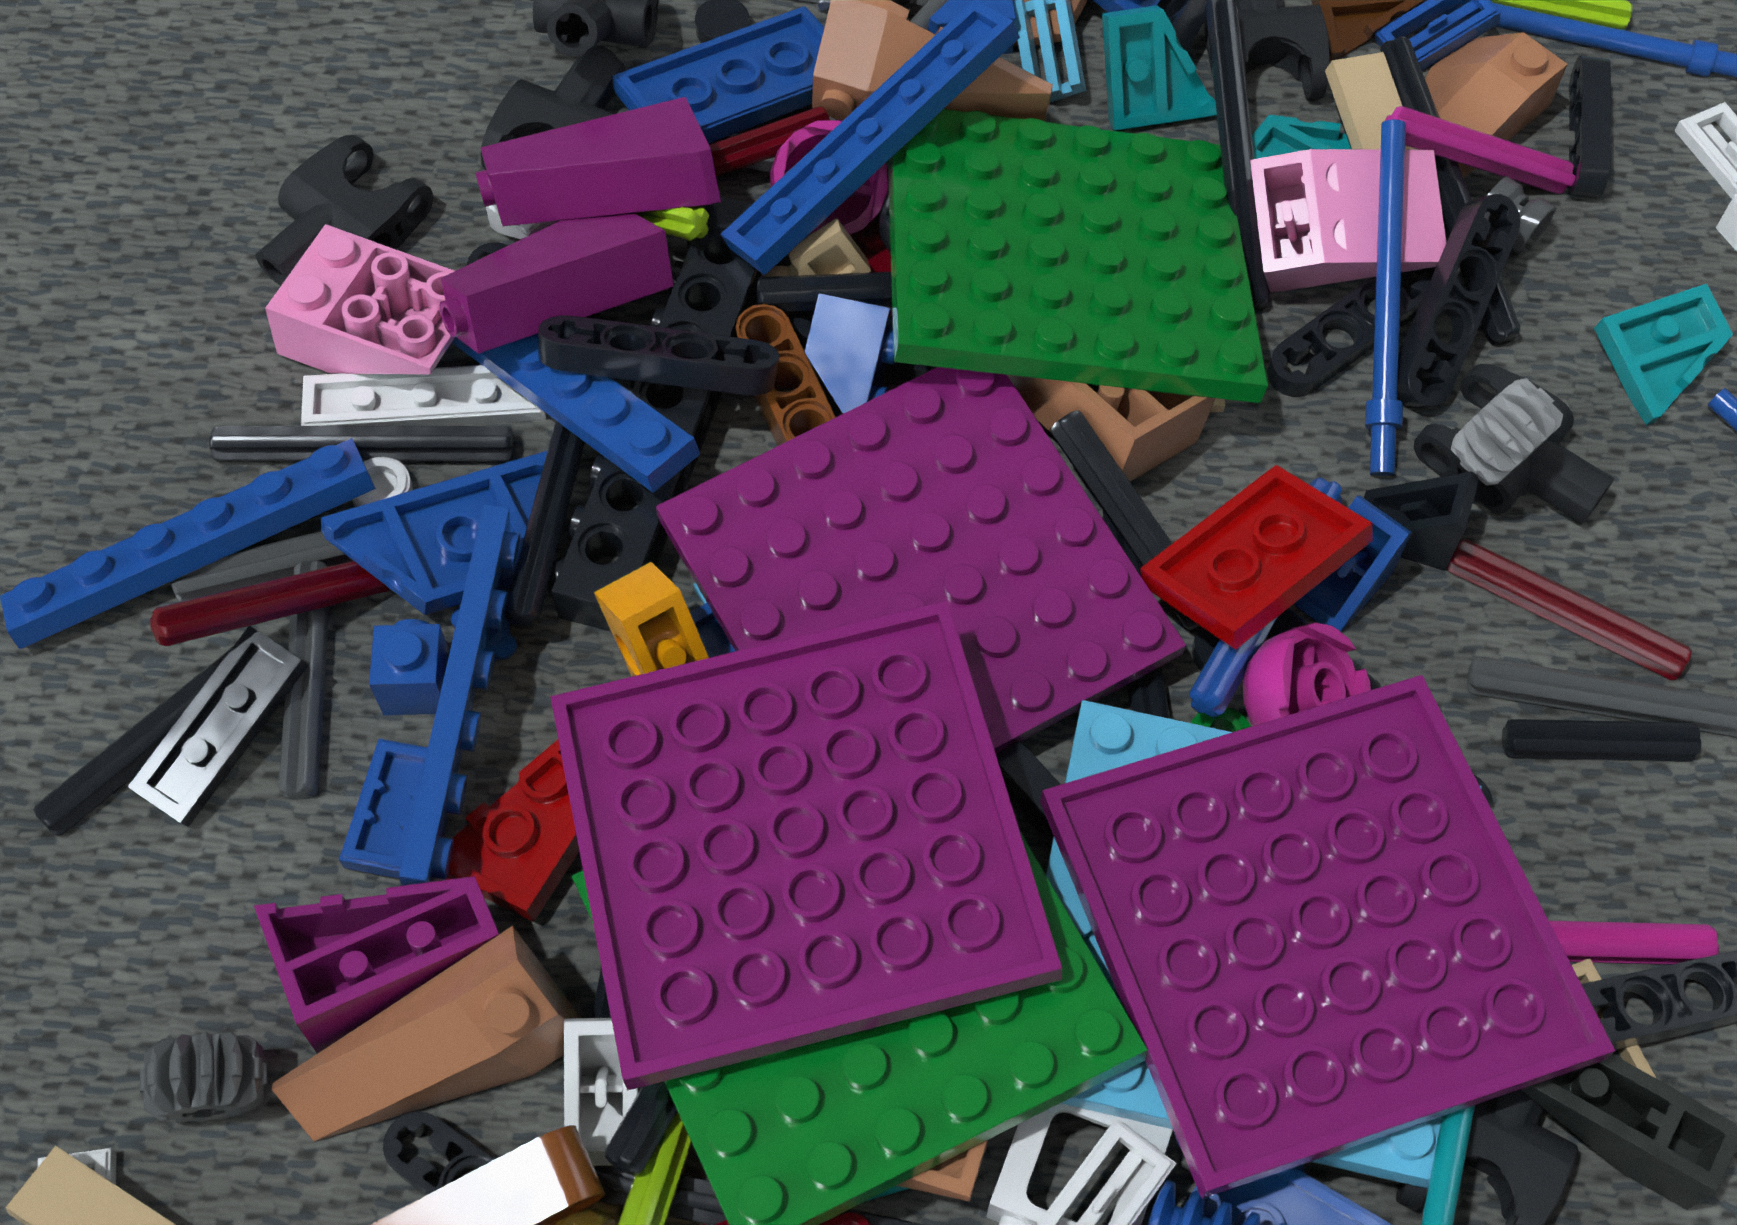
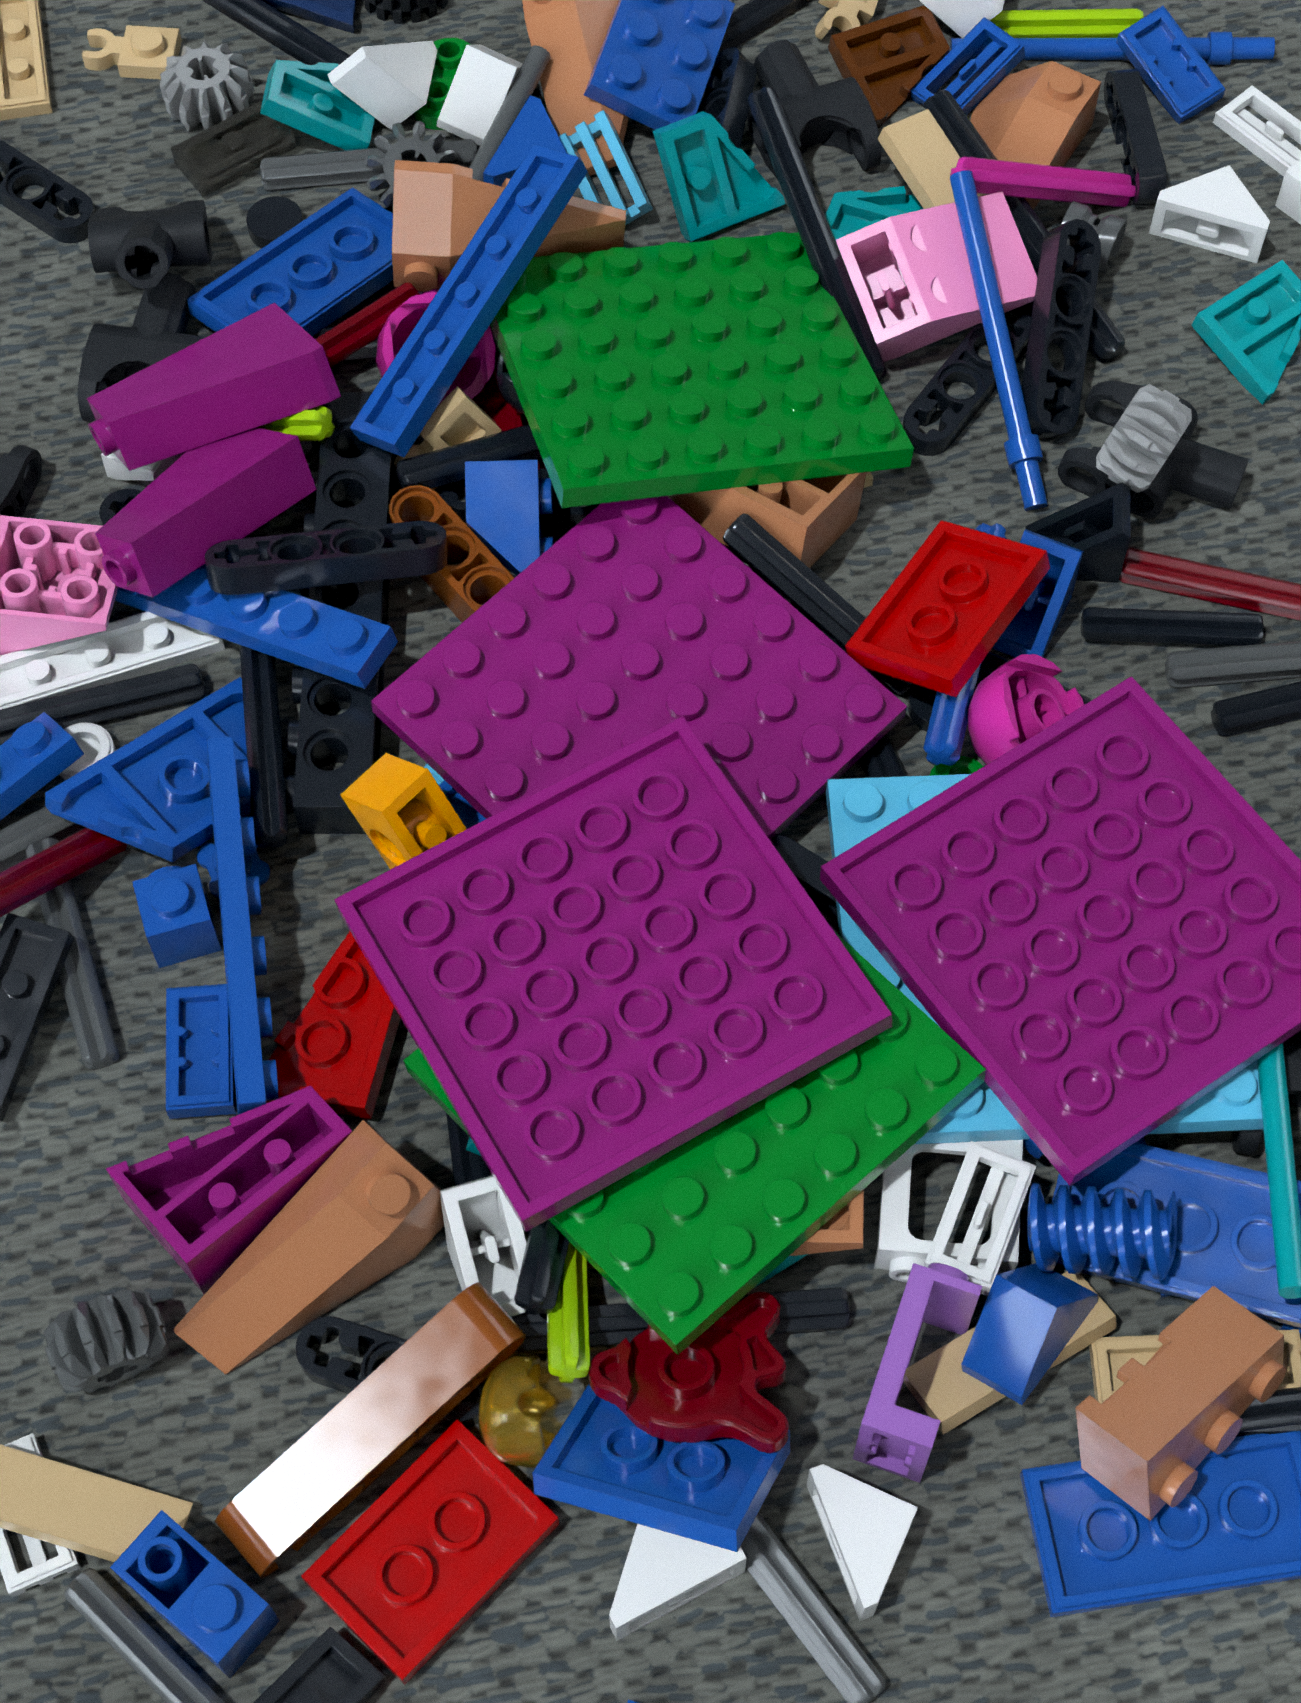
camera: 15 degrees left, 0 degrees up
(1487, 630) = (1171, 626): none -> black axle
(1646, 64) = (1170, 65): none -> blue plate
(1647, 222) = (1212, 215): none -> white slope

